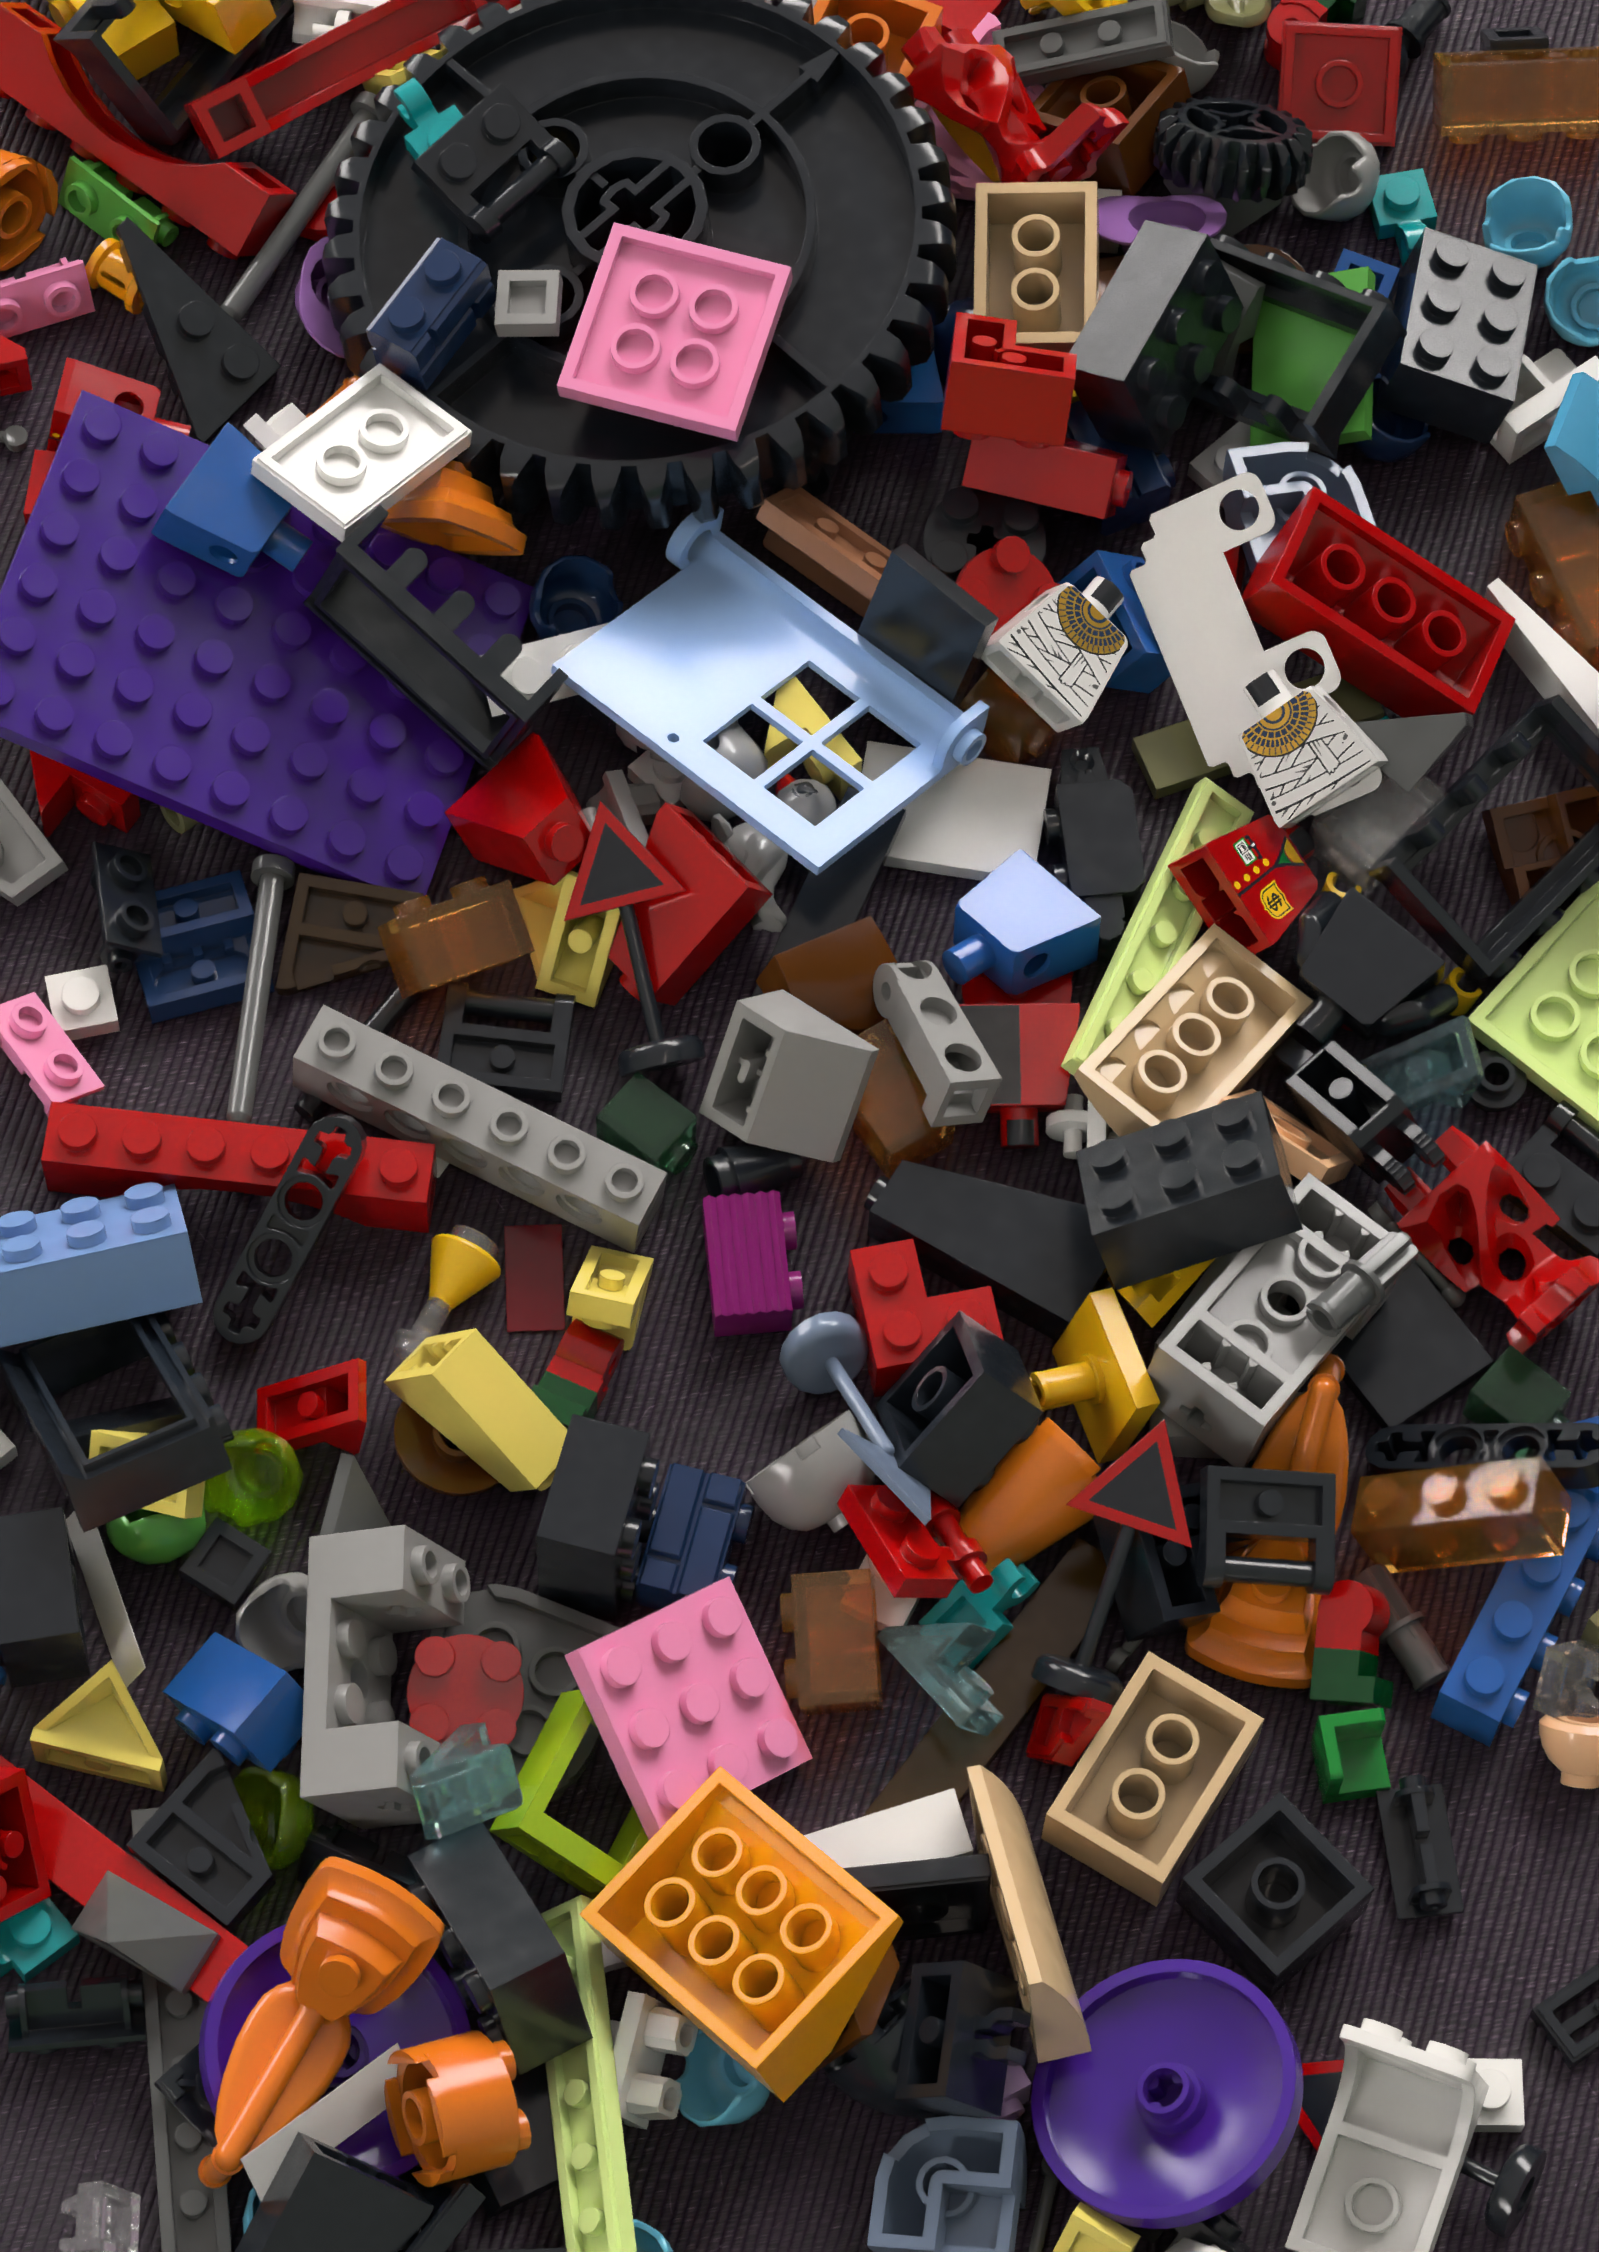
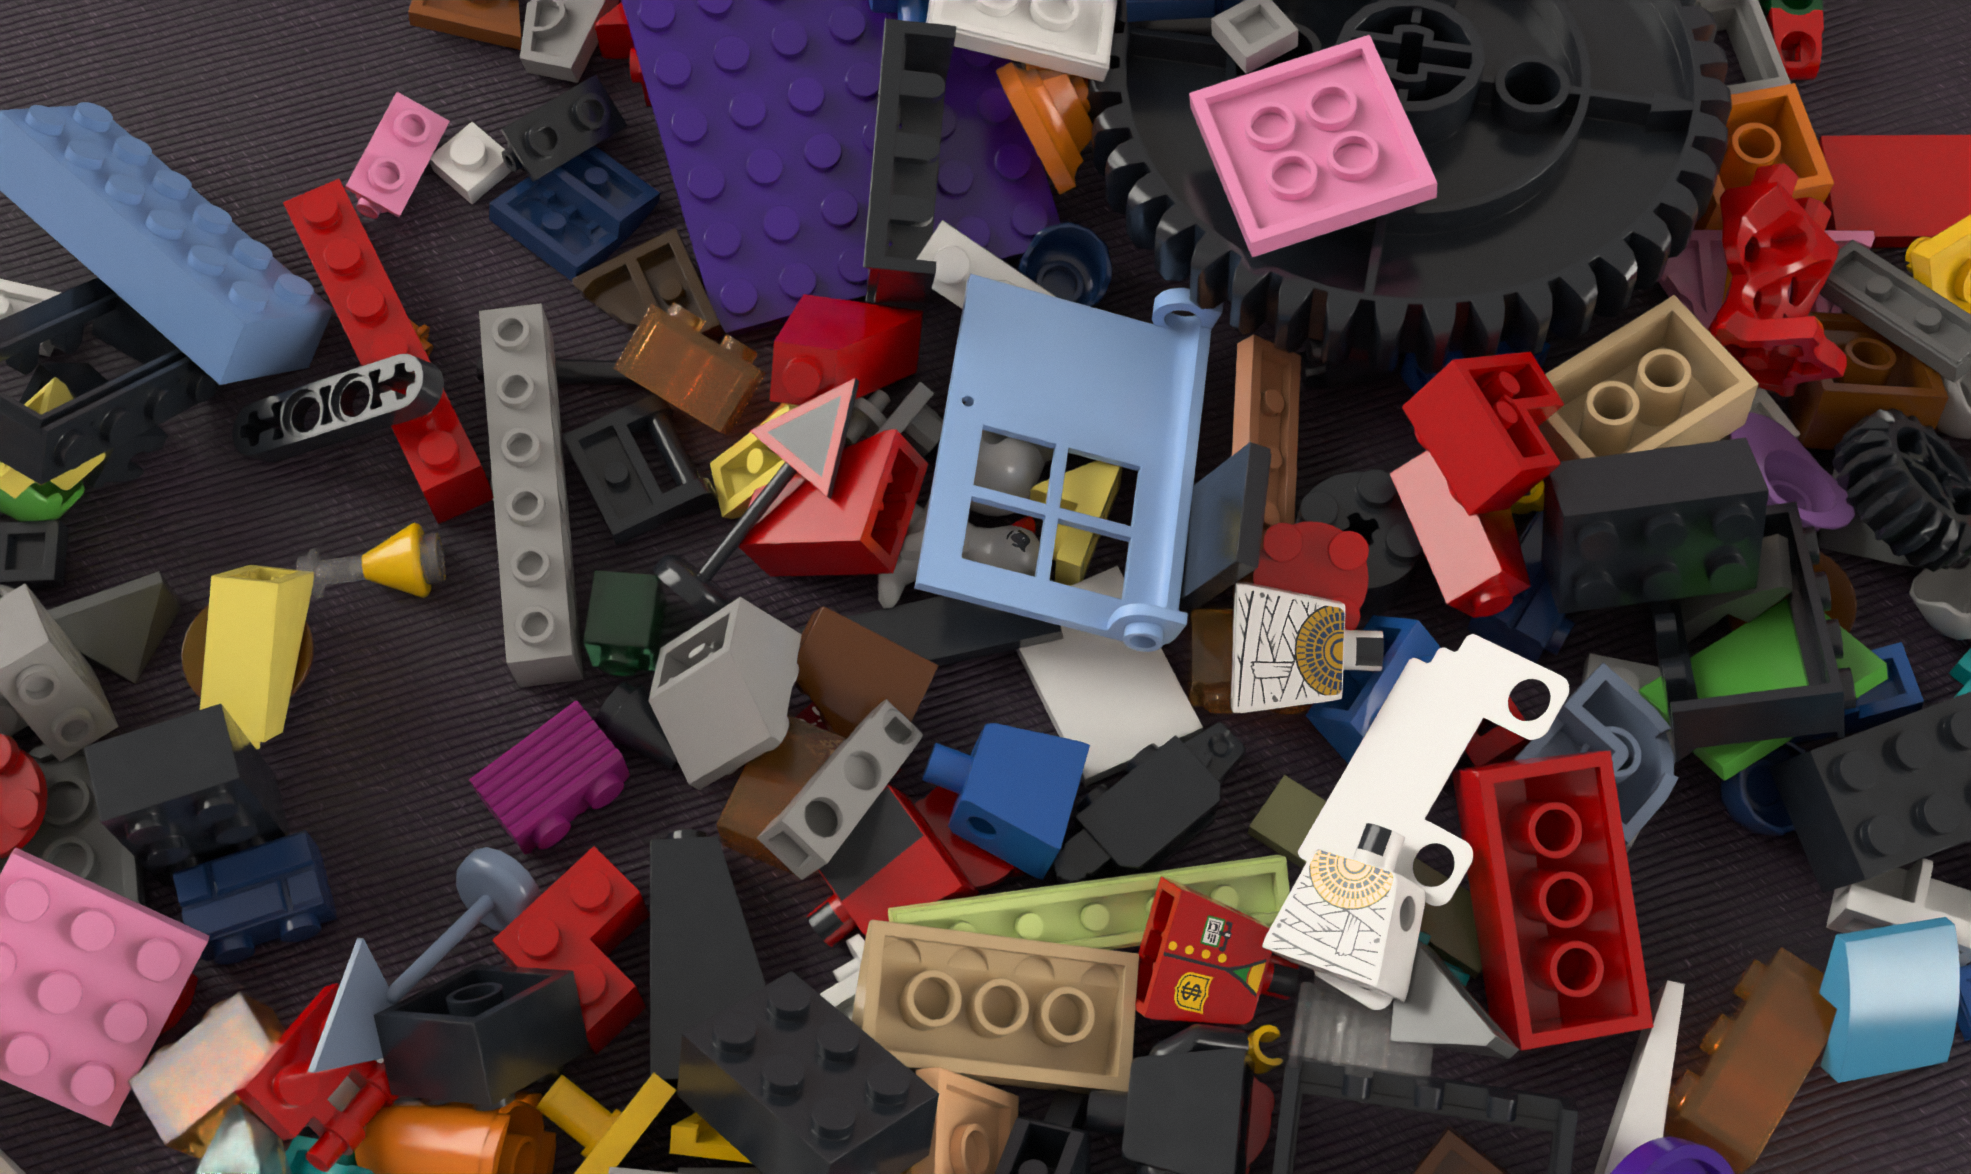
camera: 60 degrees right, 0 degrees up
(262, 1480) = (112, 520): clear neon green hair -> none
(272, 876) = (663, 216): dark grey bar -> none
(318, 1407) = (202, 537): red slope -> none
(534, 1278) = (446, 626): dark red sticker -> none
(579, 1372) = (350, 712): red leg -> none
(611, 1292) = (450, 686): light yellow slope -> none
(809, 1479) = (335, 932): light grey cylinder -> none

